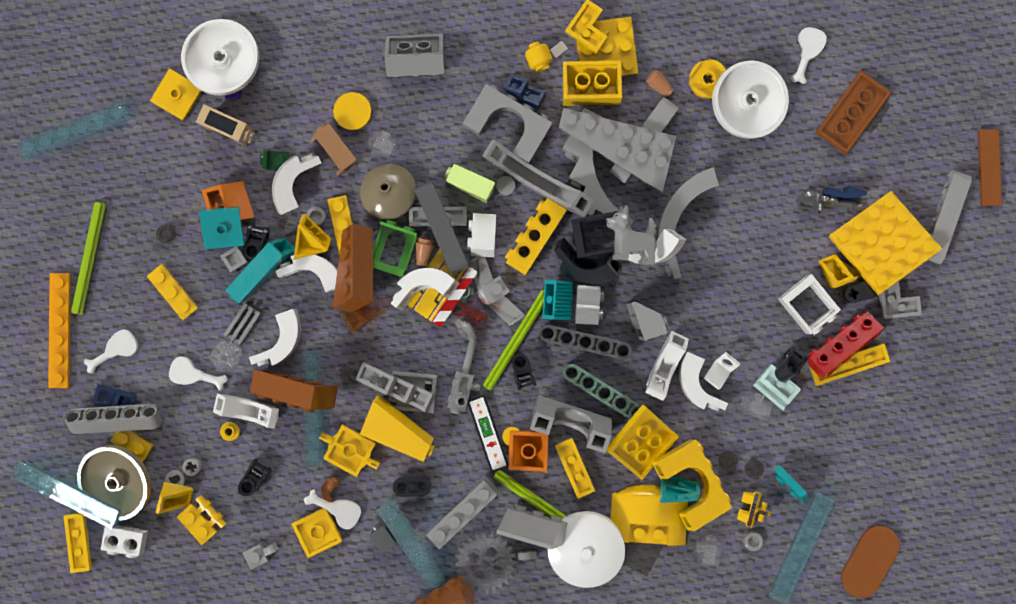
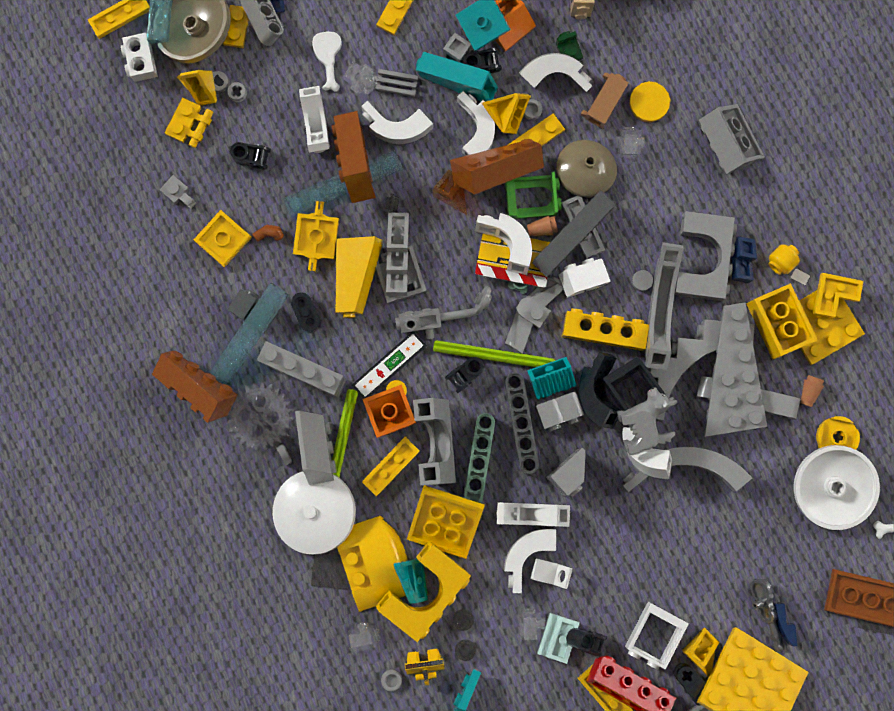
camera: 70 degrees right, 5 degrees down
(235, 431) = (286, 119): yellow plate -> none
(344, 510) = (253, 258): white piece -> none
(470, 183) = (630, 244): yellowish green slope -> none
(476, 315) = (501, 304): clear red plate -> none

